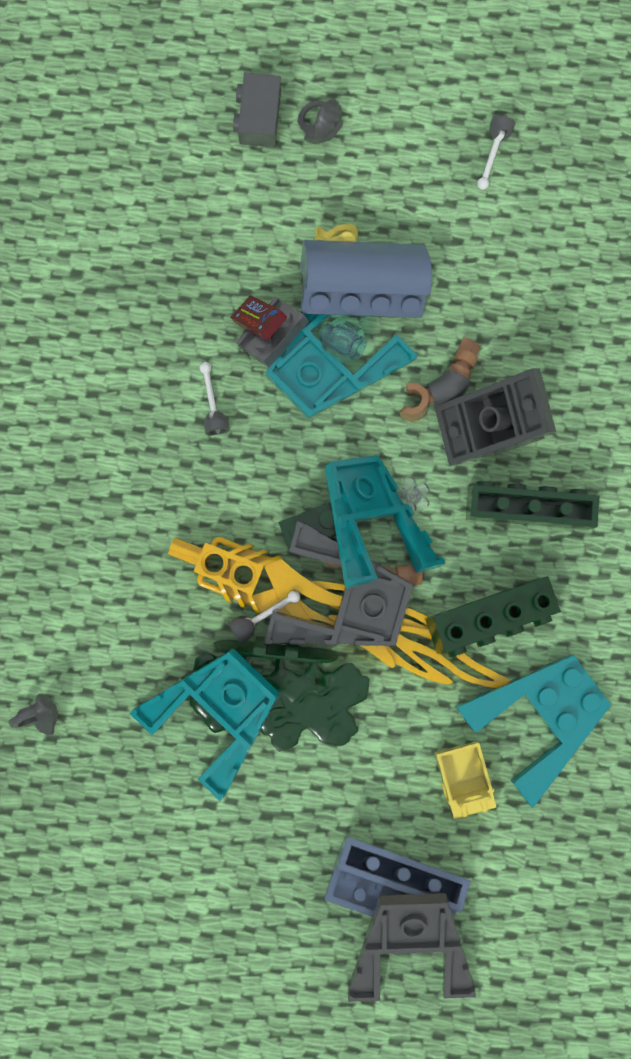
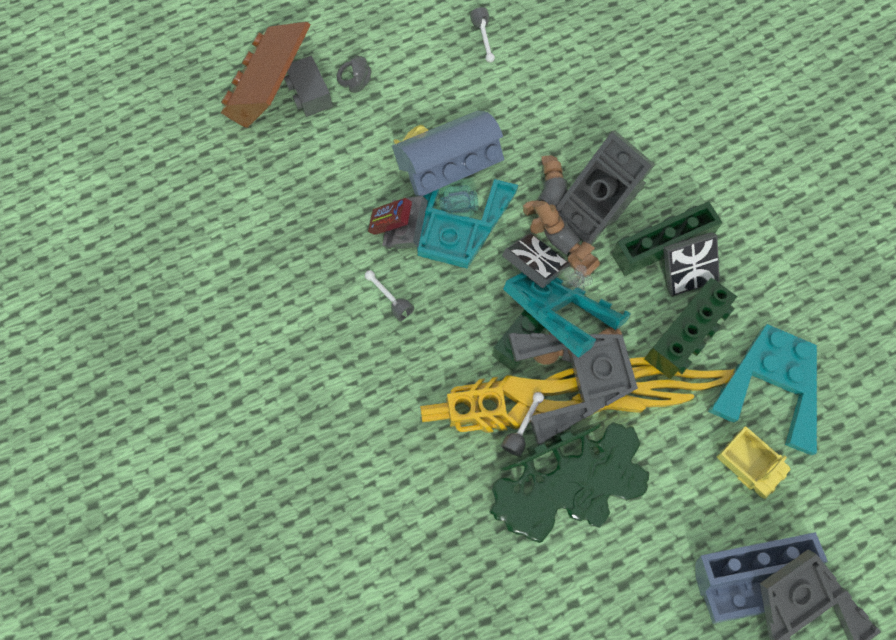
camera: 25 degrees left, 15 degrees down
(41, 714) = (395, 611): dark grey piece -> none
(217, 68) = (263, 72): none -> dark orange slope
(231, 695) = (540, 497): teal wing -> none
(382, 452) = (536, 259): none -> tile
(427, 447) = (564, 238): none -> medium nougat piece
(538, 550) = (691, 263): none -> tile

